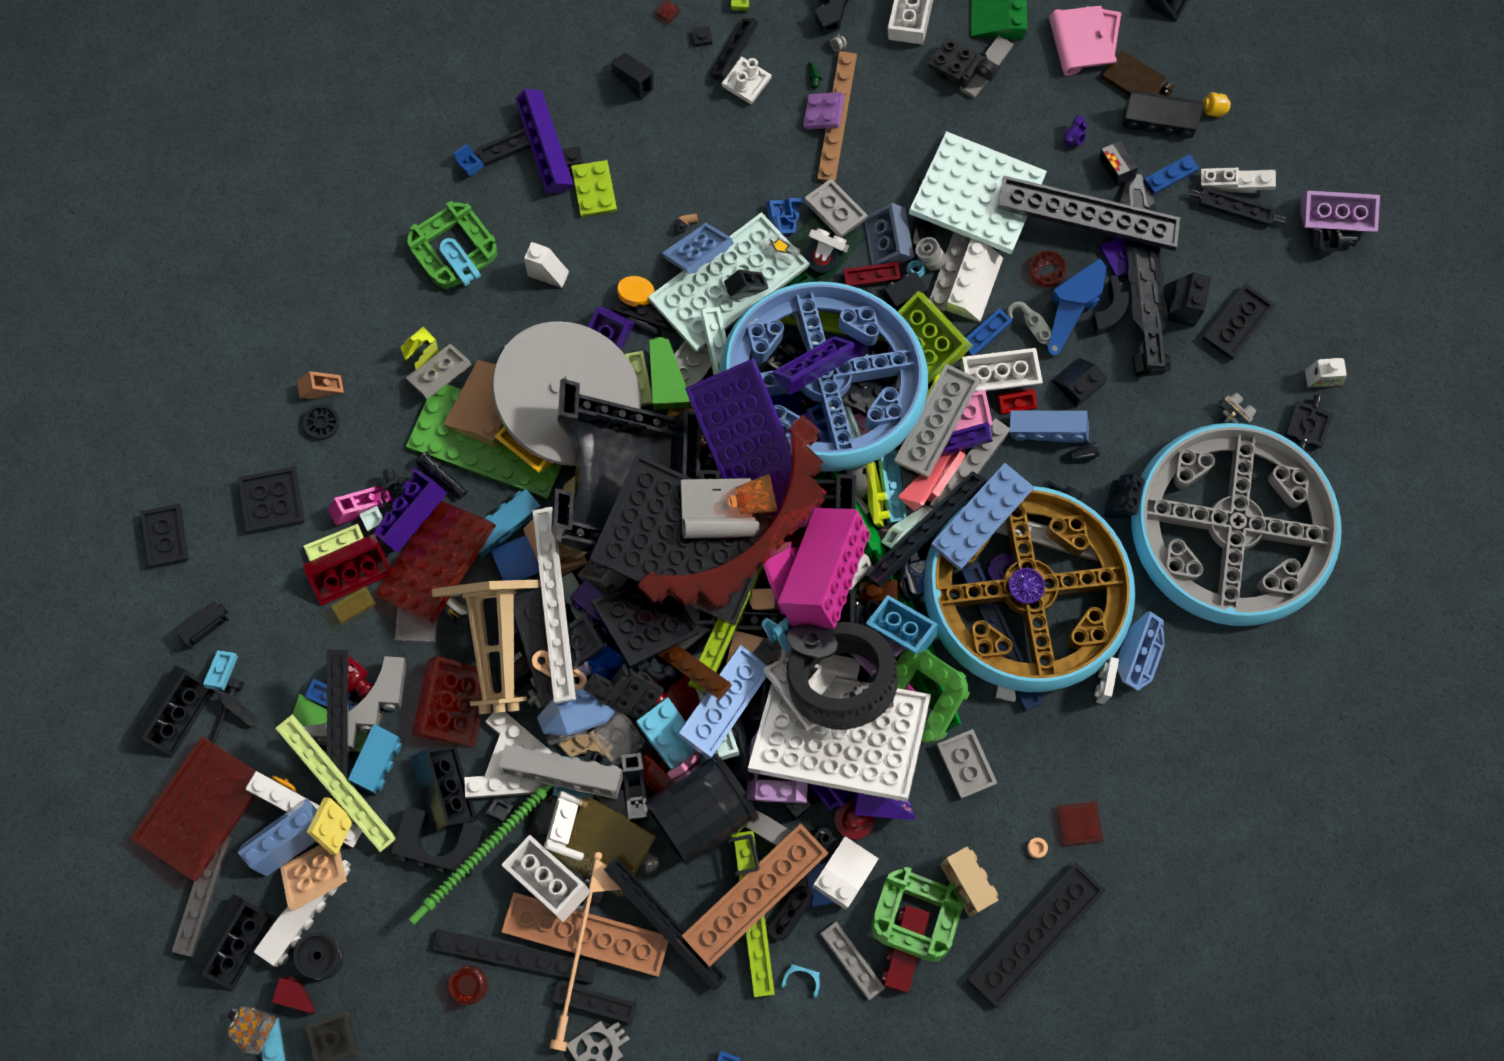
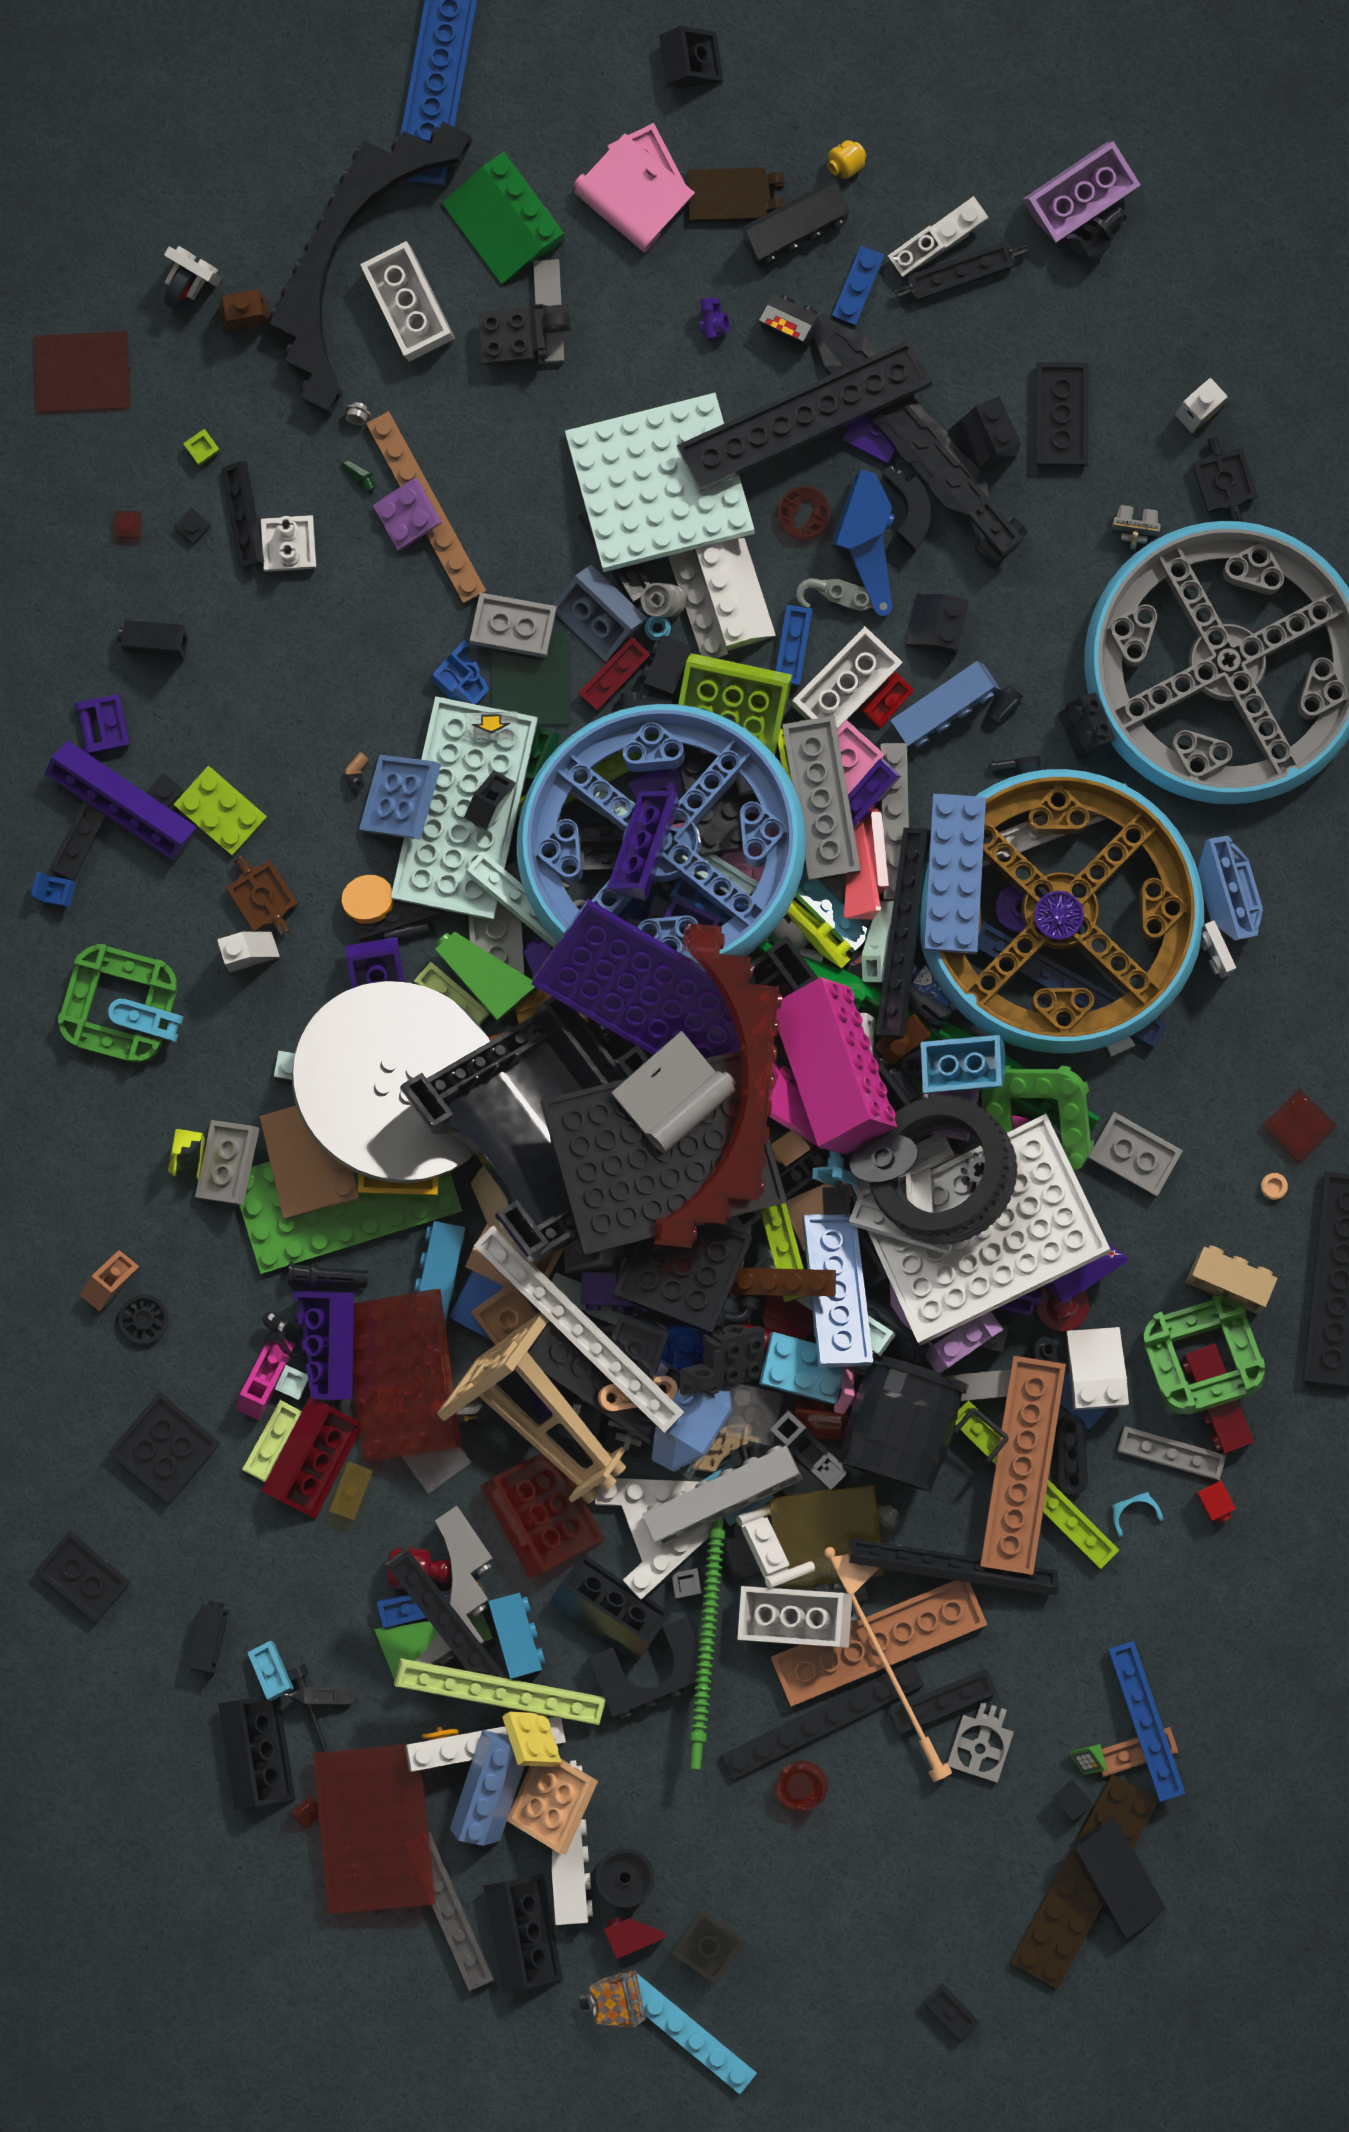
camera: 35 degrees left, 10 degrees up
(169, 769) = (306, 1811): none -> clear red slope
(521, 568) = (504, 1313): none -> medium nougat plate
(573, 100) = (110, 720): none -> dark purple plate
(579, 247) = (262, 895): none -> reddish brown plate
(754, 496) = (702, 1048): clear orange torso -> none
(824, 253) = (542, 687): plate -> none
(856, 1011) = (1216, 1502): none -> red brick

